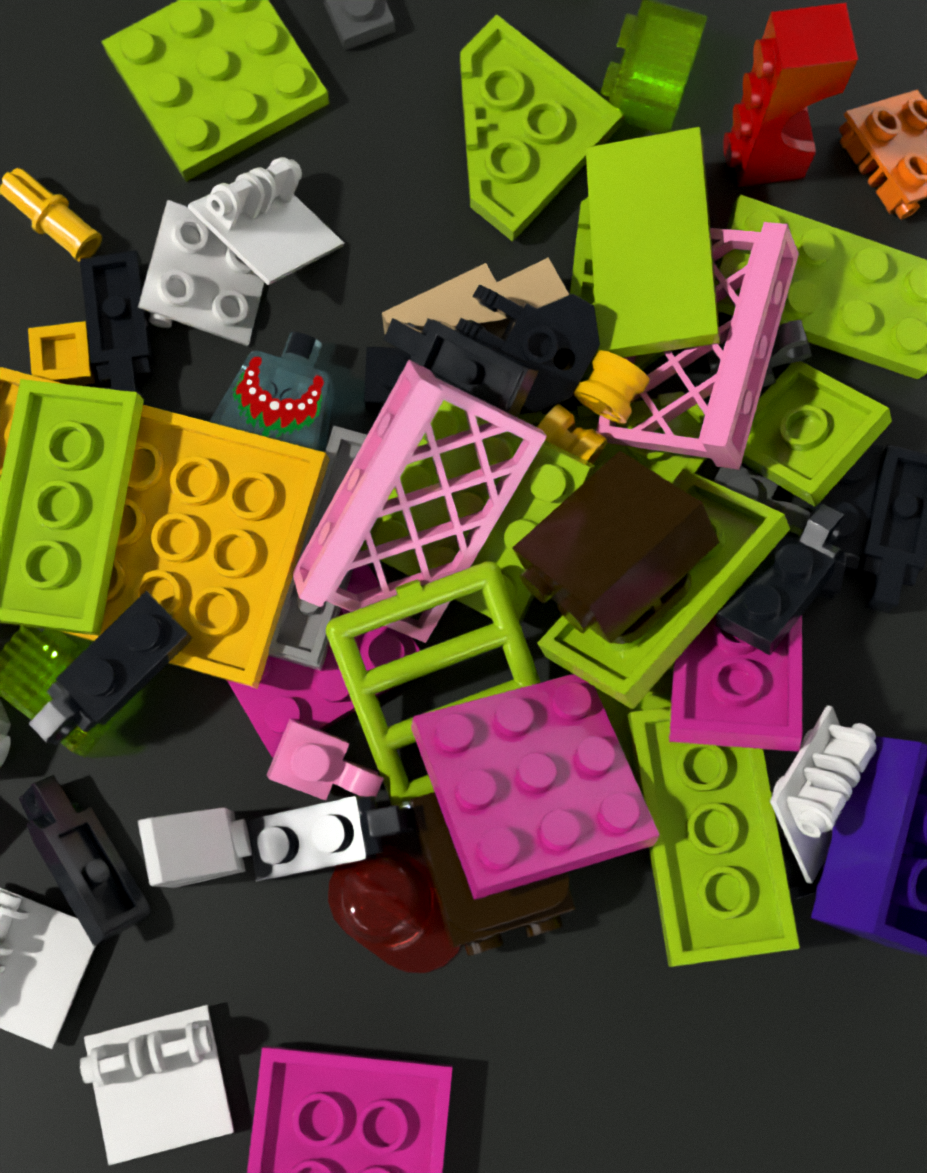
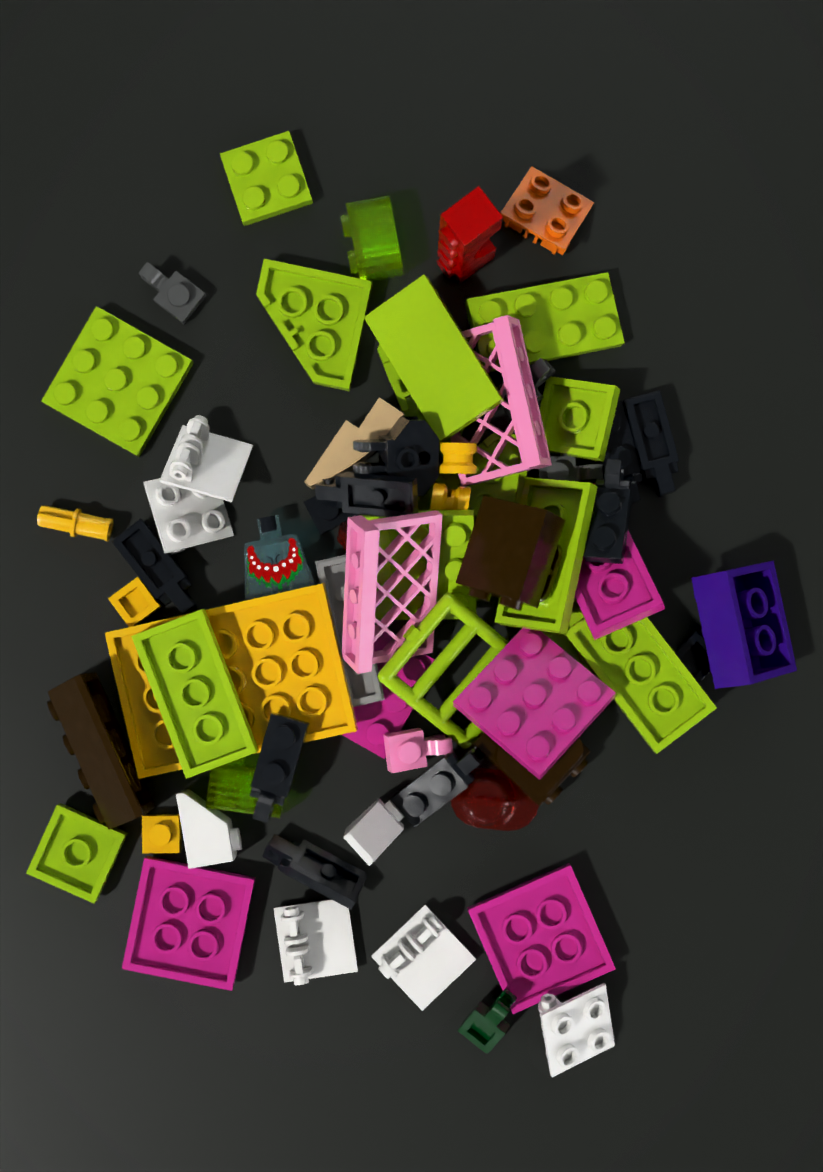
camera: 30 degrees left, 10 degrees up
(819, 786) = (683, 619): white hinge -> none

